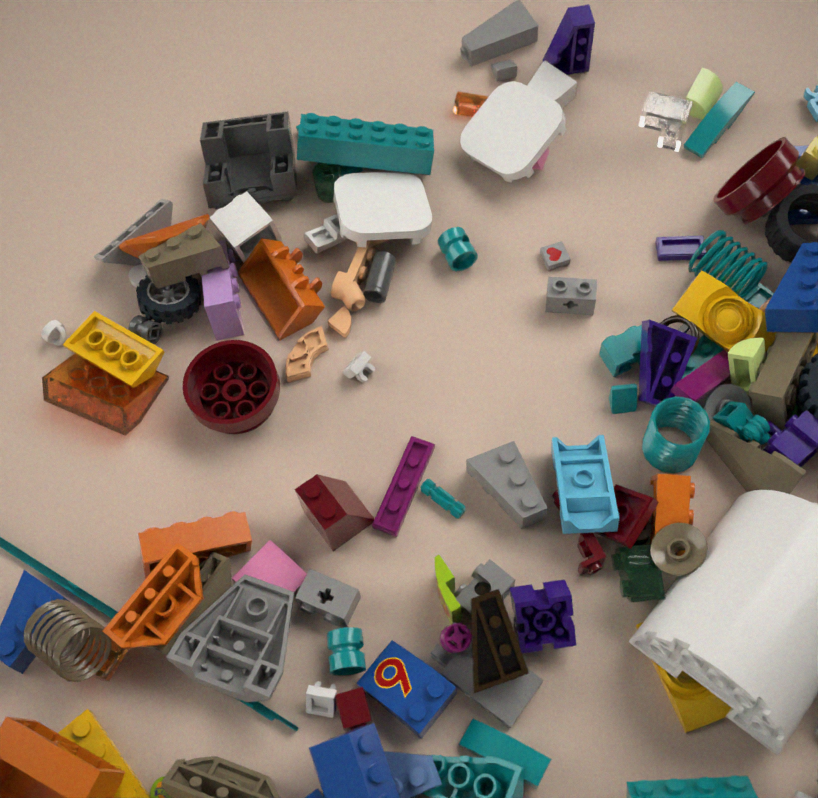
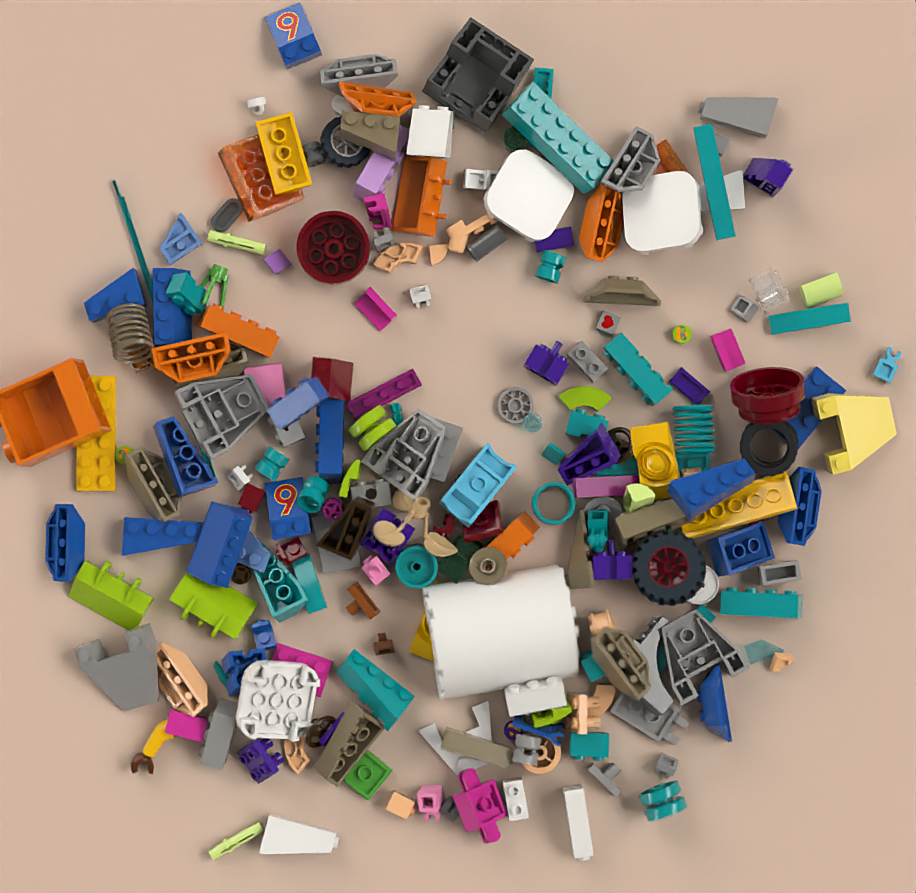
camera: 35 degrees right, 25 degrees up
(52, 257) = (293, 36): none -> slope
(63, 510) = (180, 240): none -> medium blue wing
(94, 573) = (169, 319): none -> blue slope
(98, 450) = (227, 215): none -> dark grey tile
(98, 478) = (236, 242): none -> yellowish green pin
(107, 548) = (186, 294): none -> teal brick
(129, 512) = (217, 275): none -> bright green plant
(185, 451) = (277, 261): none -> medium lavender slope
(241, 736) = (182, 459): none -> blue wedge
(250, 321) = (378, 210): none -> dark pink hinge
(279, 348) = (383, 242): none -> light grey tile
(317, 543) = (297, 402): none -> wedge
(324, 412) = (375, 309): none -> dark pink panel
(392, 573) = (330, 440): none -> blue wedge
(419, 519) = (371, 427): none -> lime wheel
(420, 641) = (313, 494): none -> teal wheel
(439, 225) = (558, 239): none -> dark purple tile
(450, 119) = (633, 163): none -> light grey wedge
(451, 733) = (291, 551): none -> dark red bracket
(465, 180) = (602, 224): none -> orange wedge
(485, 512) = (408, 453): none -> light grey wedge
(512, 70) = (714, 182): none -> teal tile
(537, 322) = (547, 362): none -> dark purple brick
(543, 389) = (515, 405): none -> light grey wheel
(545, 219) = (622, 292): none -> dark tan wedge
(551, 552) = (417, 509): none -> tan plant
(563, 669) = (375, 569): none -> bright pink brick
(577, 383) = (537, 426): none -> clear light blue plate
(581, 721) = (361, 601): none -> dark orange tile
(599, 328) = (585, 396): none -> lime tile
(615, 610) = (408, 574): none -> teal wheel
(626, 265) = (636, 369): none -> teal wedge
(627, 214) = (681, 334): none -> lime tile
(653, 748) = (383, 646): none -> reddish brown tile
(656, 156) = (744, 308): none -> light grey slope
(679, 197) = (727, 350): none -> dark pink panel

